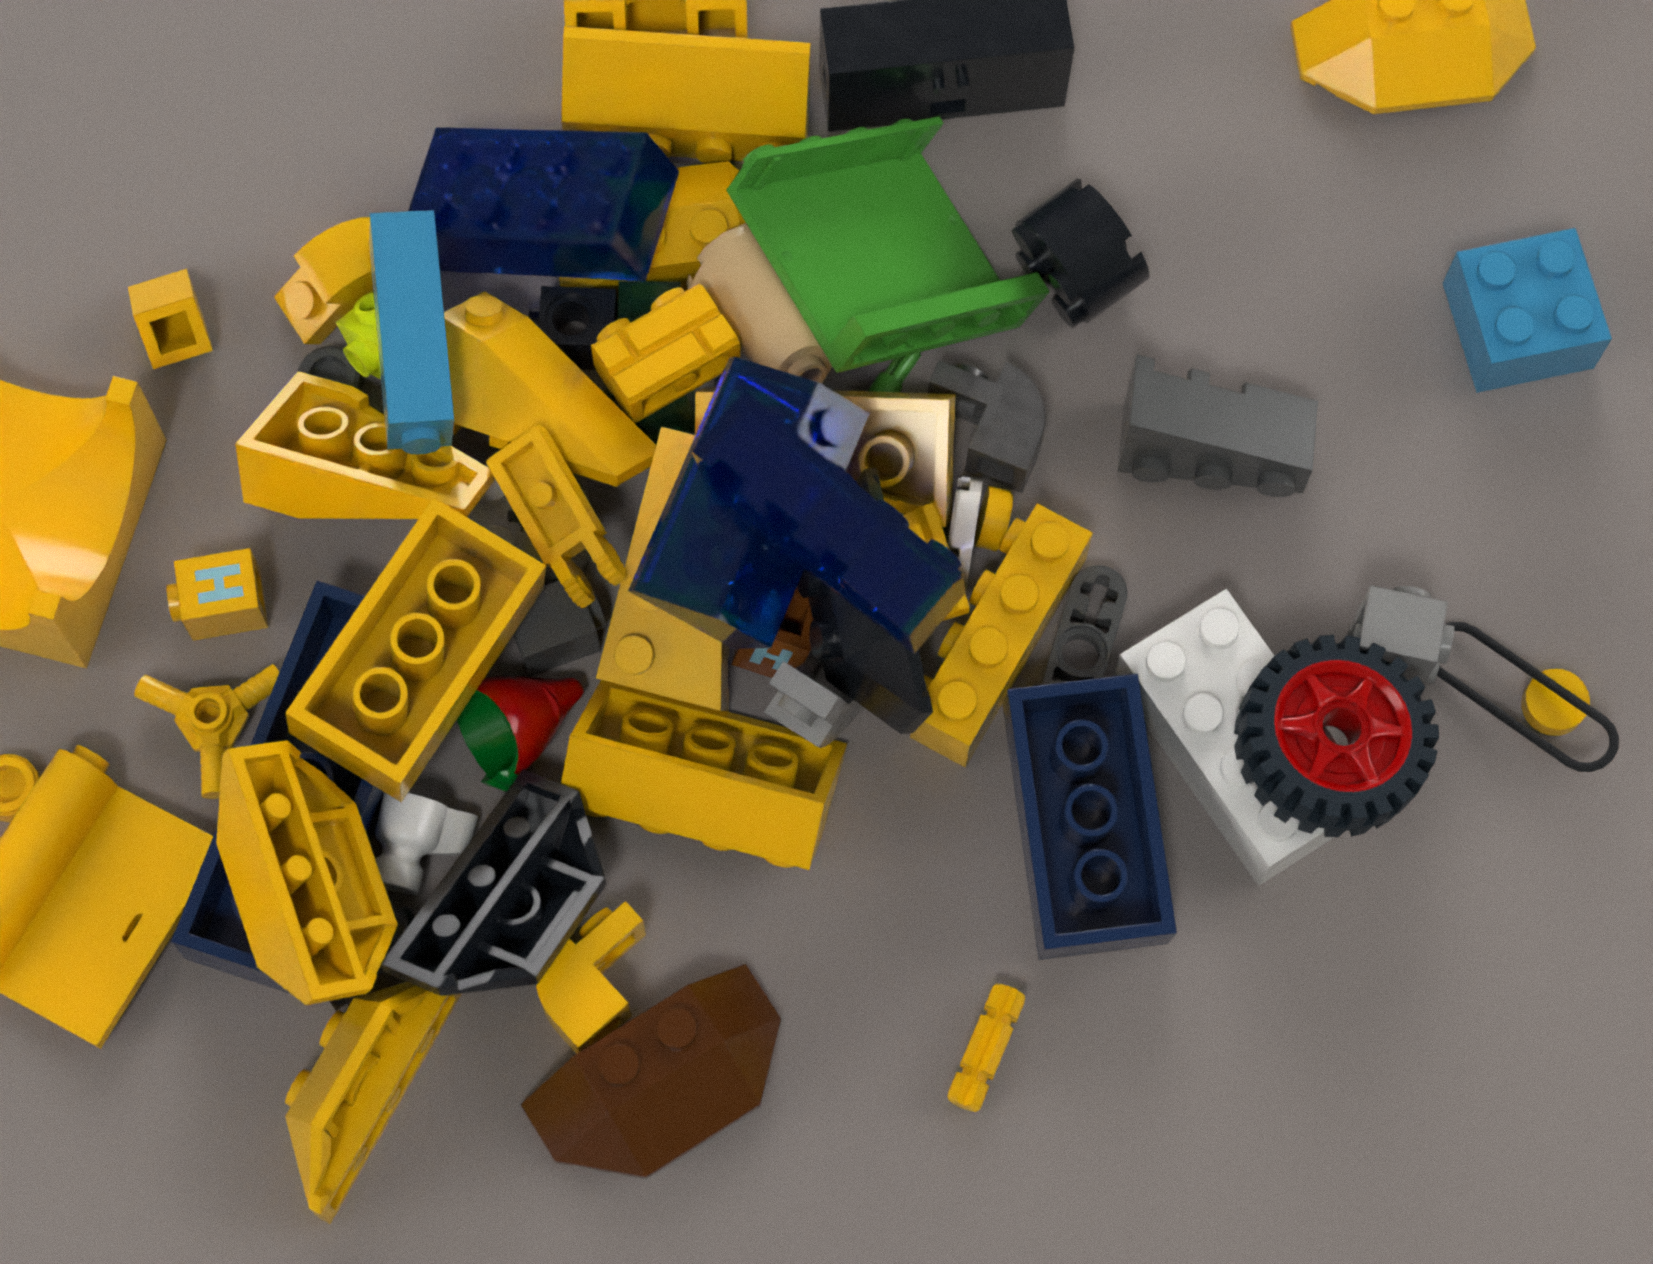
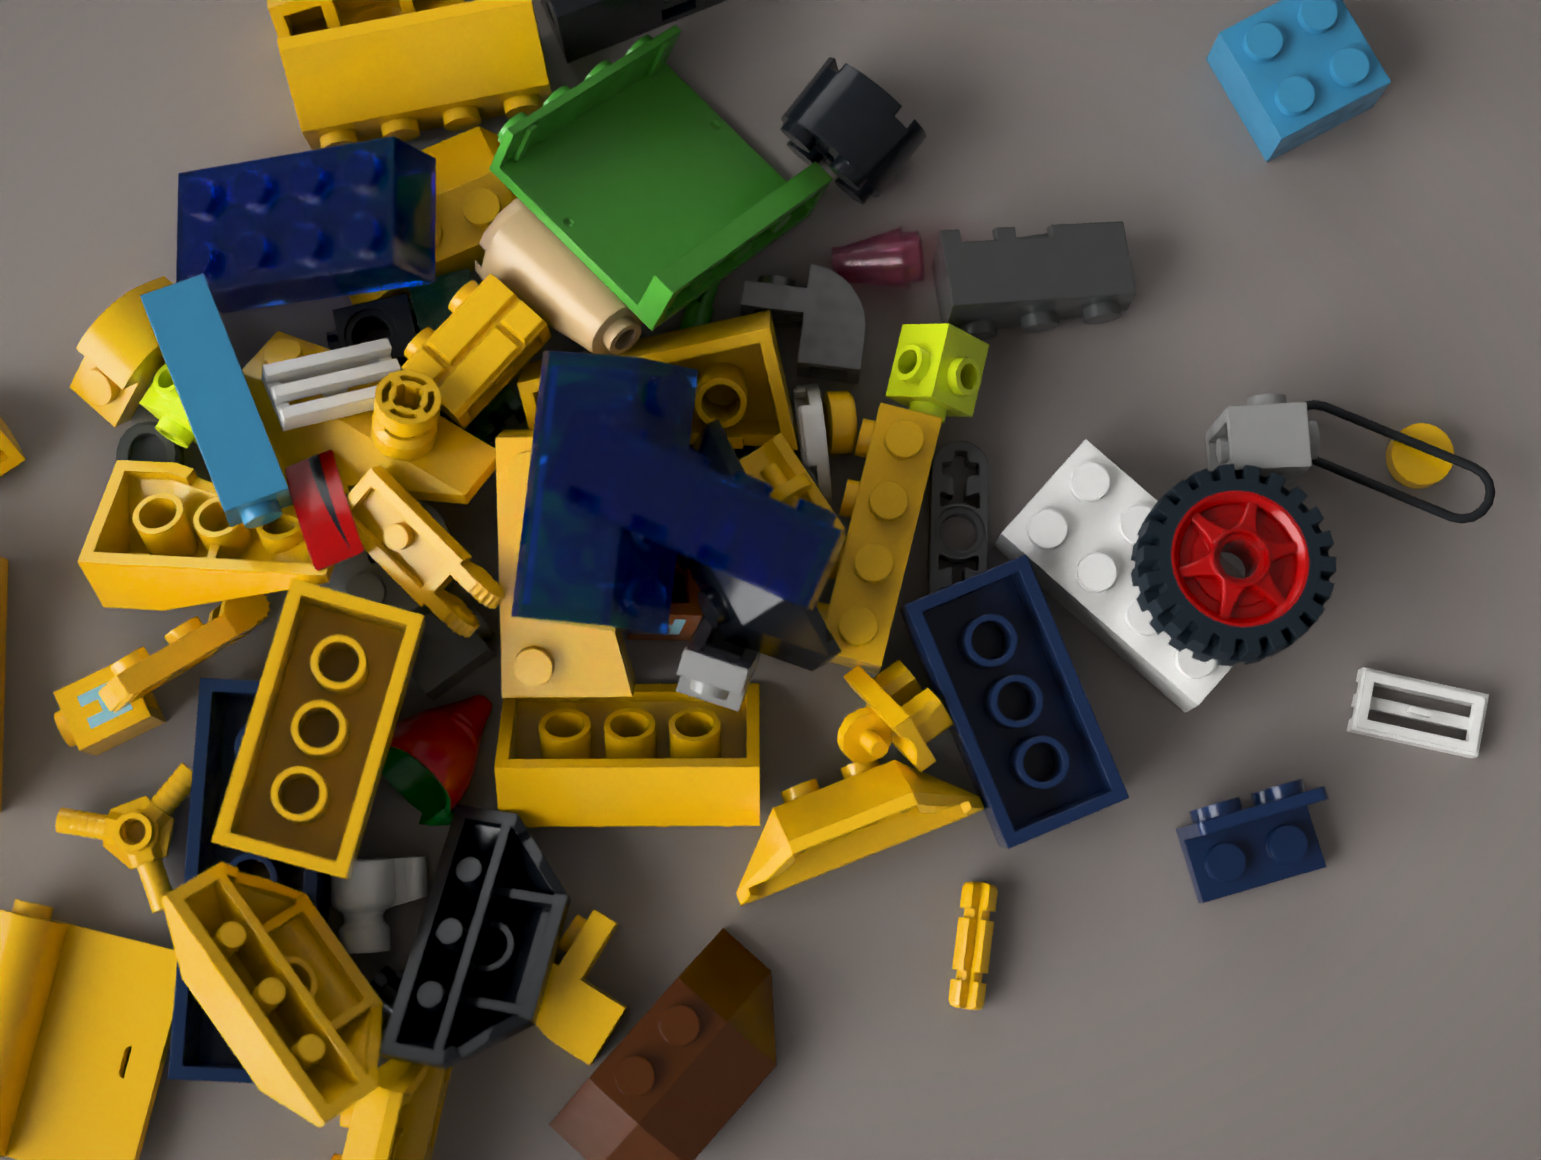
camera: 15 degrees left, 10 degrees up
(308, 556) = (188, 646): none -> yellow hinge
(479, 454) = (323, 510): none -> red sticker
(525, 336) = (328, 375): none -> white tile
(582, 387) = (405, 415): none -> yellow wheel
(897, 894) = (847, 822): none -> yellow wedge
(970, 799) = (895, 714): none -> yellow hips
(1078, 381) = (882, 259): none -> clear pink cone
(1102, 491) = (937, 370): none -> neon yellow brick
(1291, 1015) = (1254, 846): none -> dark blue bracket
(1479, 968) = (1364, 702): none -> white tile

